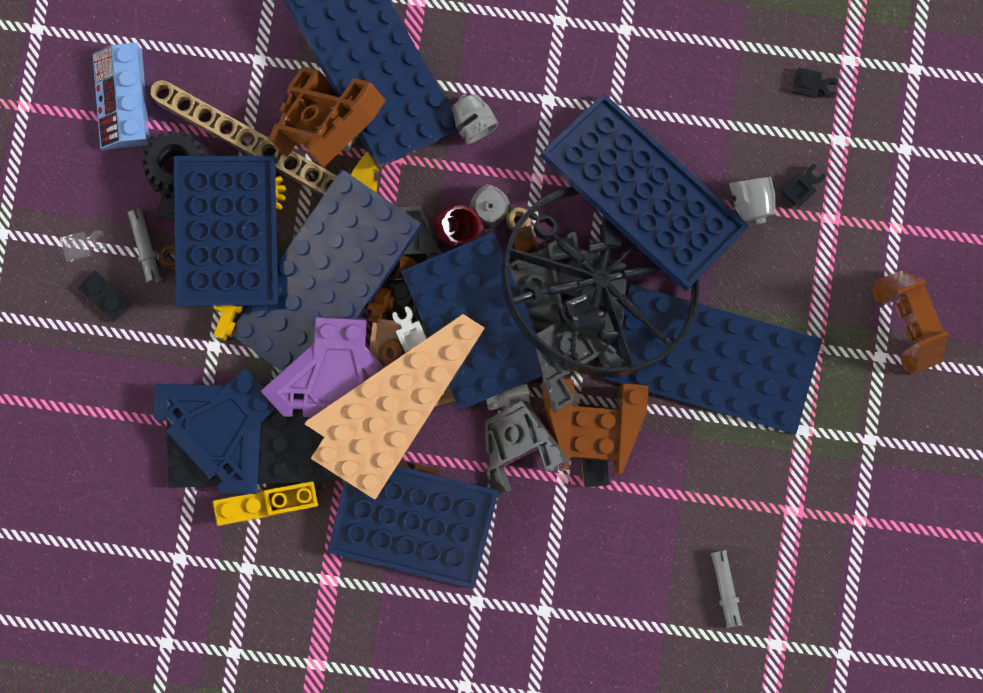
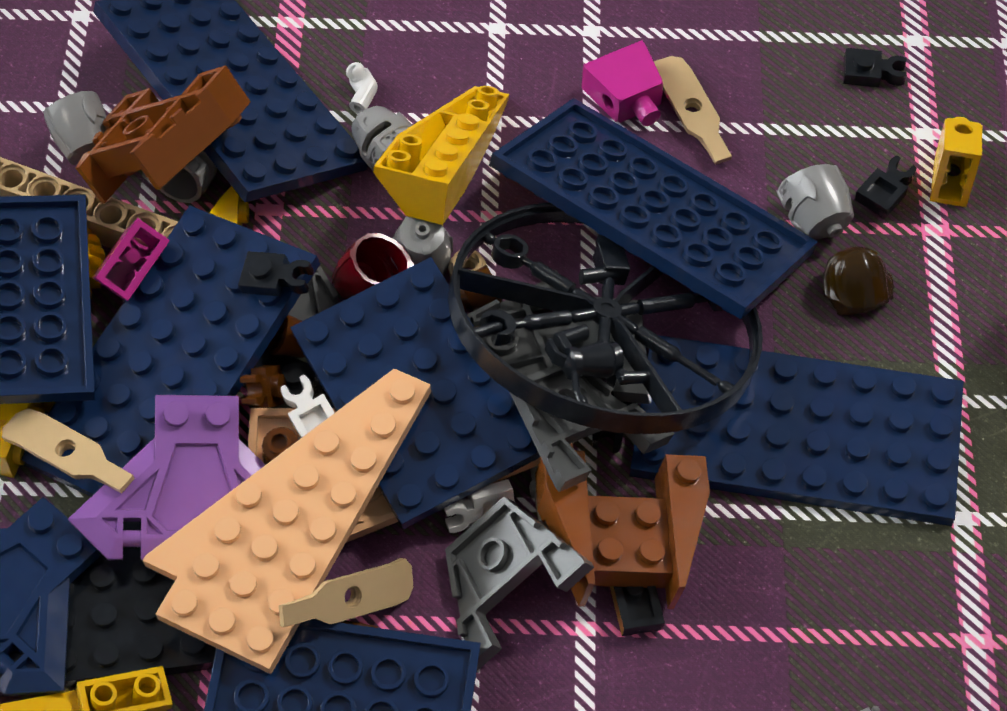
camera: 10 degrees left, 25 degrees down
(250, 333) = (50, 439): none -> tan piece
(270, 89) = (75, 122): none -> light grey helmet
(300, 207) = (129, 260): none -> dark pink torso
(390, 236) = (269, 272): none -> black plate
(434, 452) = (370, 592): none -> tan piece
(463, 65) = (363, 85): none -> white arm
(509, 138) = (438, 156): none -> yellow wedge
(641, 85) = (625, 84): none -> dark pink torso
(680, 91) = (684, 92): none -> tan piece
(769, 259) = (857, 281): none -> dark brown hair
(853, 172) = (958, 145): none -> yellow torso

